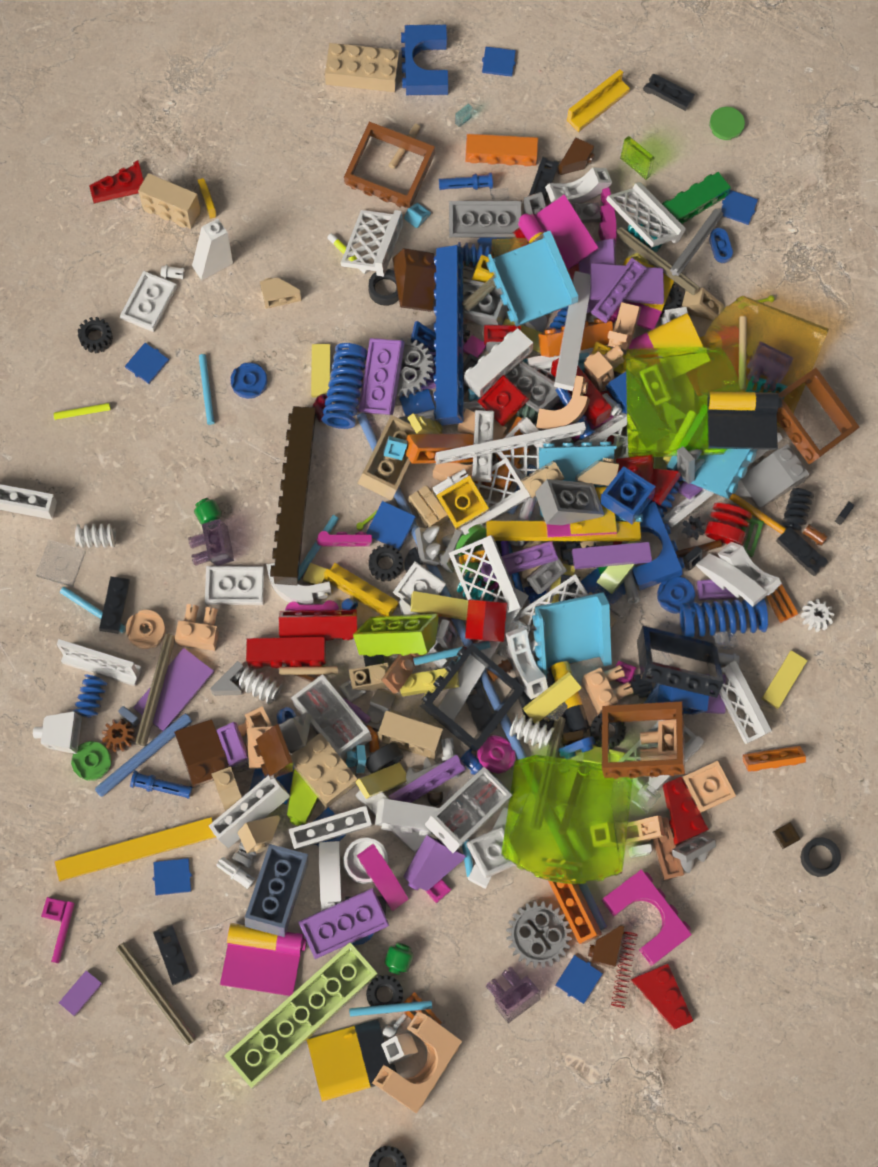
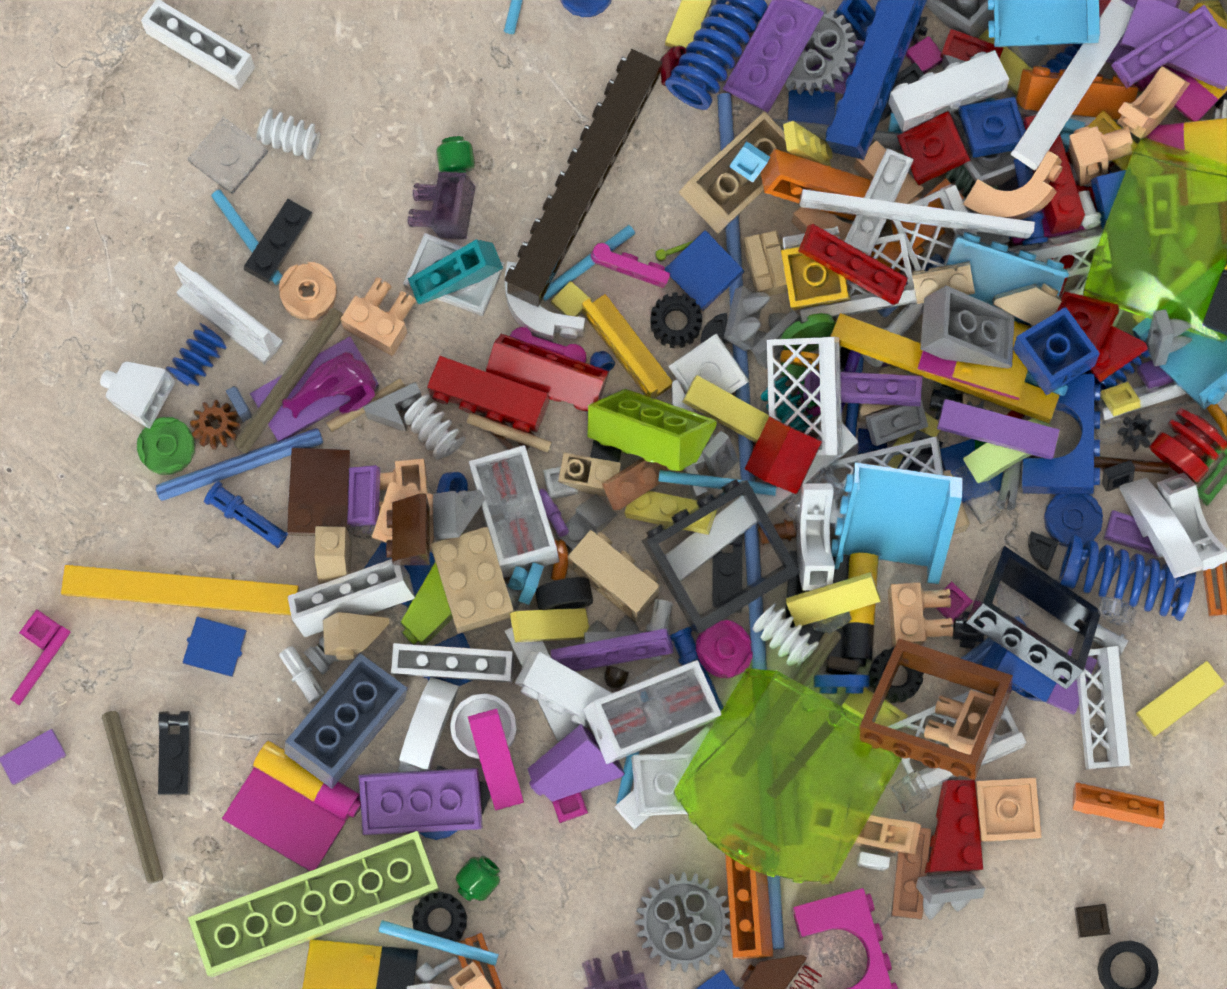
camera: 25 degrees right, 5 degrees up
(185, 676) = (336, 376): none -> magenta hair
(207, 691) = (345, 418): none -> tan bar
(236, 582) = (456, 271): none -> teal slope
(483, 487) = (853, 264): none -> red tile
(534, 374) = (992, 126): none -> blue tile
(664, 620) = (1041, 549): none -> black tile
(676, 511) = (1120, 399): none -> light yellow tile

